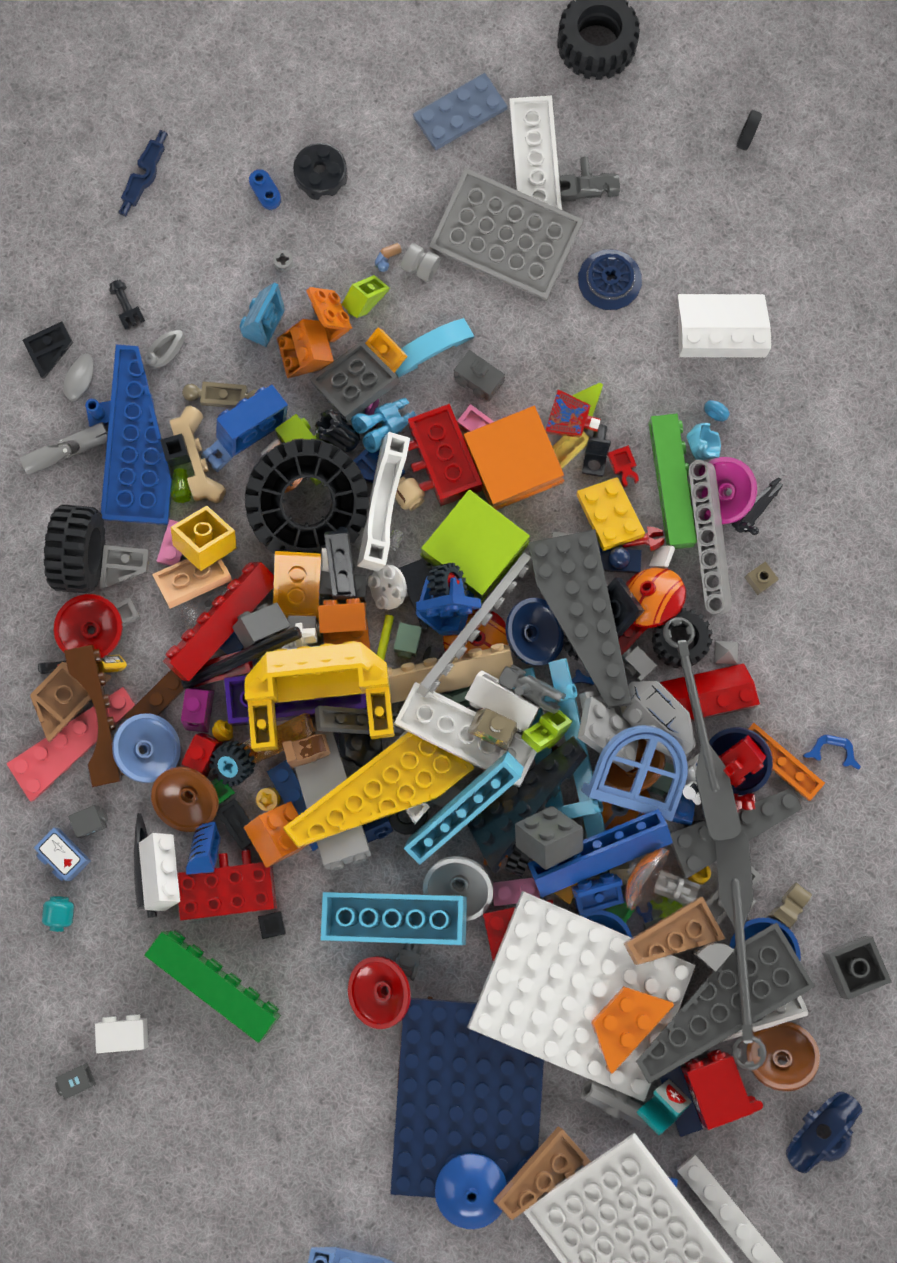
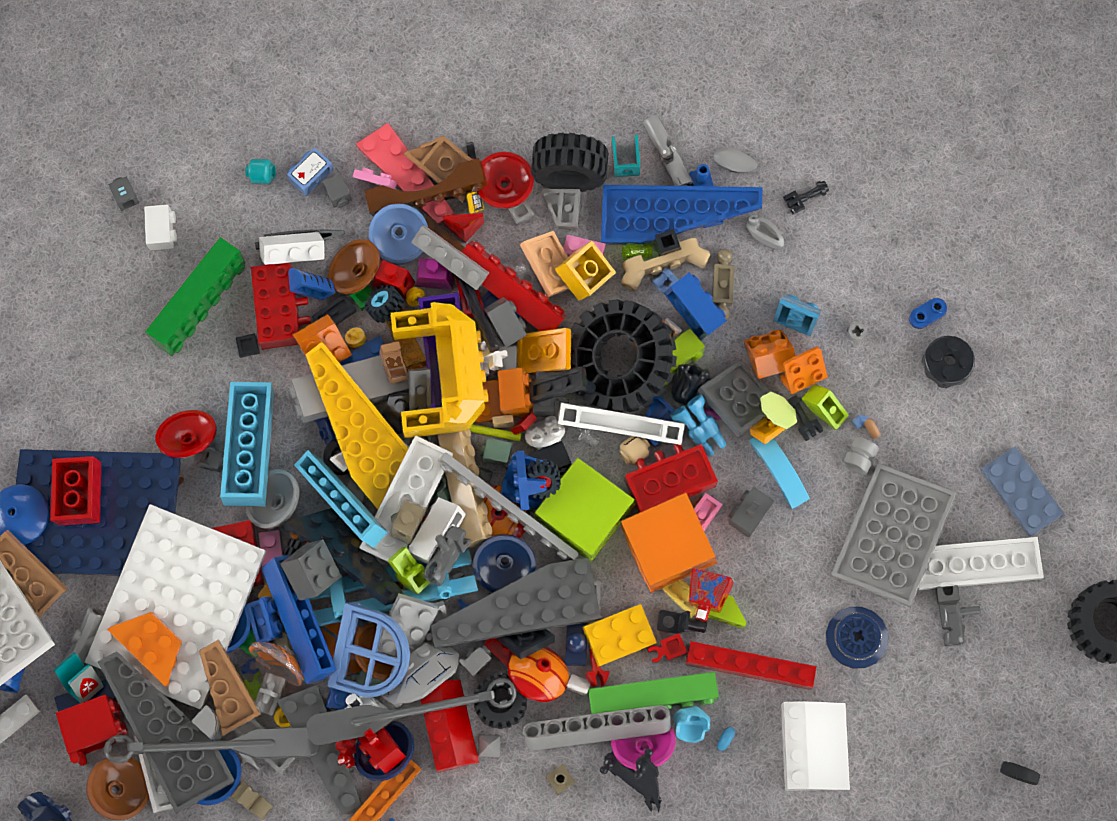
camera: 90 degrees right, 5 degrees down
(48, 347) = (761, 133): black wing -> none
(68, 480) = (618, 170): none -> teal piece
(71, 786) = (367, 175): none -> bright pink plate
(137, 183) = (926, 201): dark blue piece -> none
(139, 676) = (464, 224): none -> red slope
(183, 684) = (450, 257): none -> light grey plate
(360, 327) = (807, 425): none -> black hinge
(372, 339) = (778, 410): none -> yellowish green piece
(373, 637) = (503, 421): none -> tan tile
(376, 610) = (523, 424): none -> red tile
(449, 1119) = (75, 491): none -> red brick
(642, 382) = (751, 665): none -> red brick
(763, 483) = (647, 779): none -> black piece

